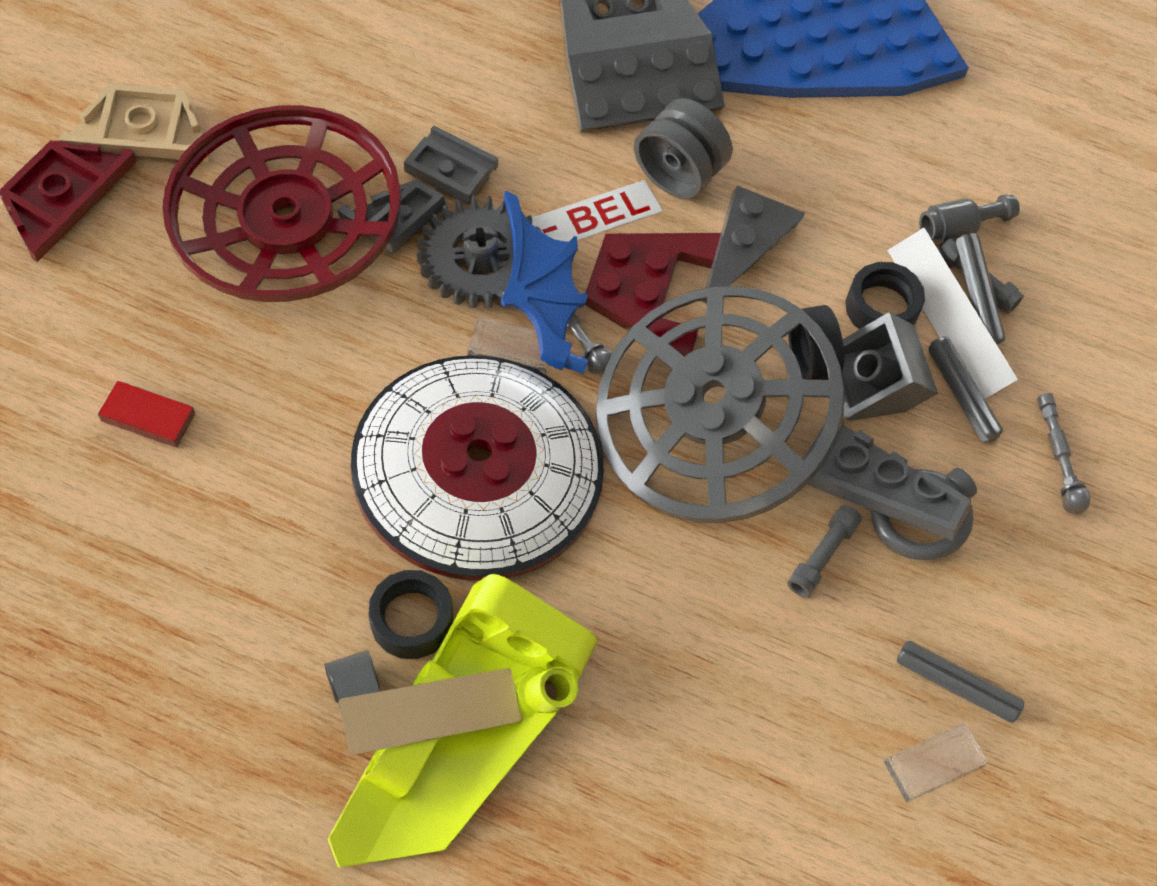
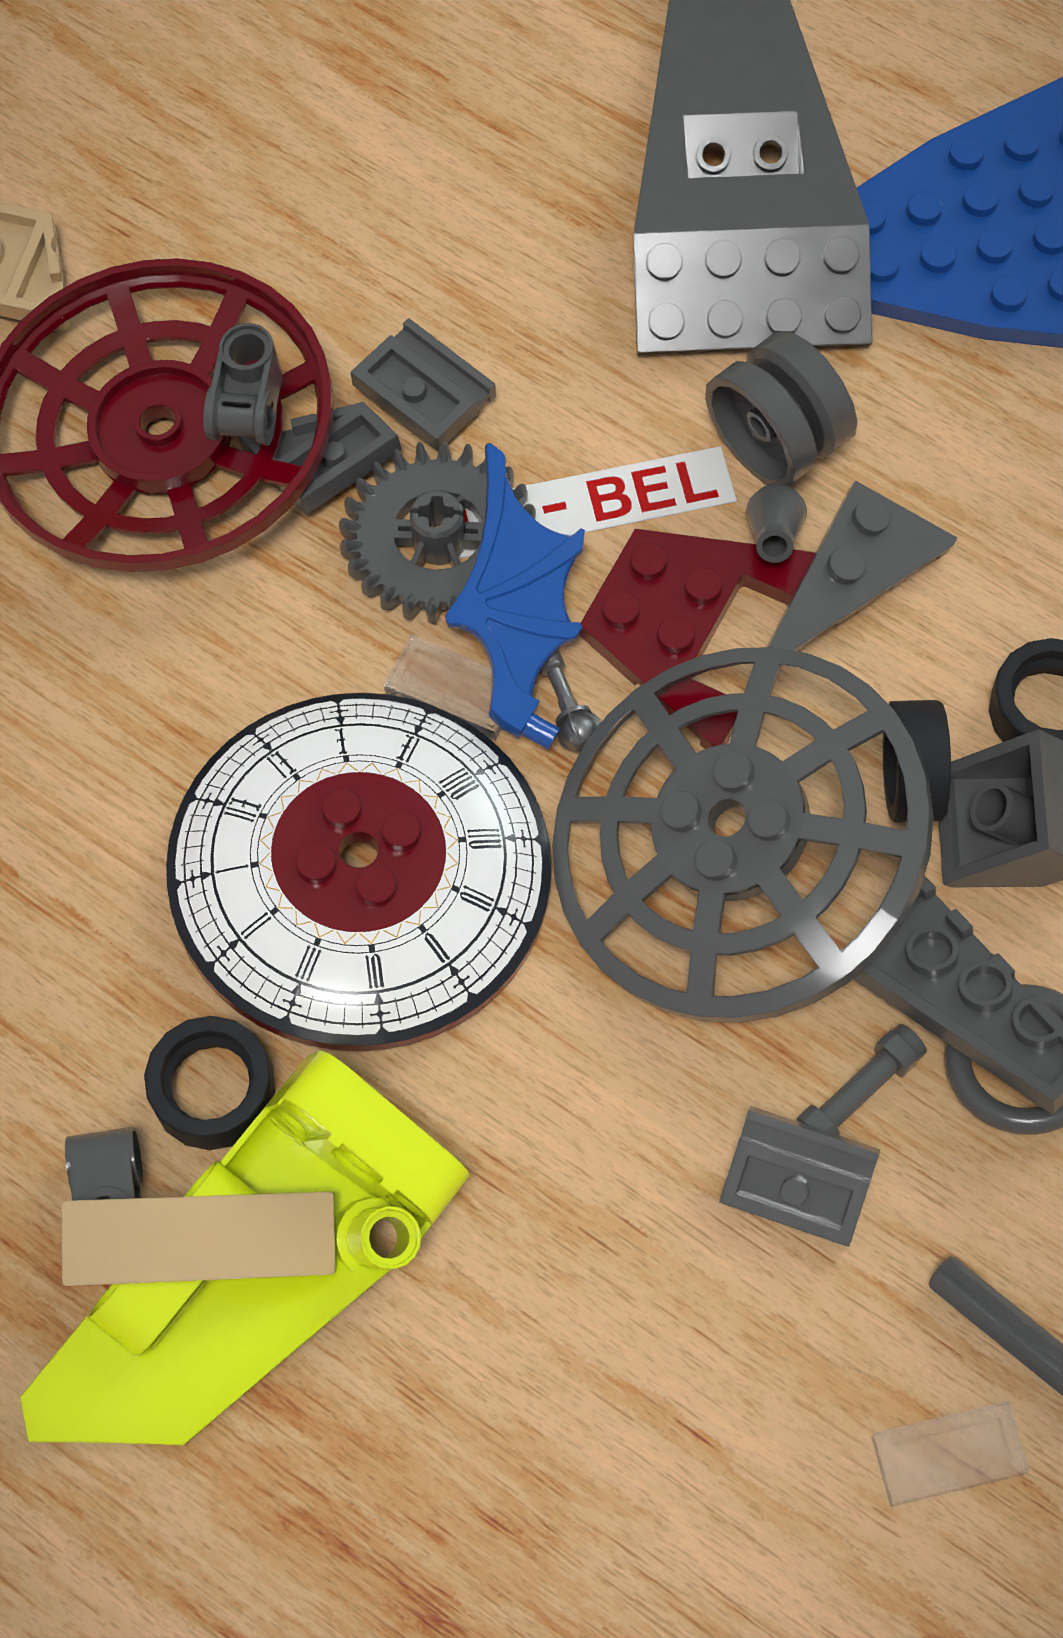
camera: 20 degrees right, 5 degrees up
(343, 179) = (244, 396): none -> dark grey piece
(693, 215) = (775, 520): none -> dark grey cone
(804, 607) = (799, 1176): none -> dark grey plate

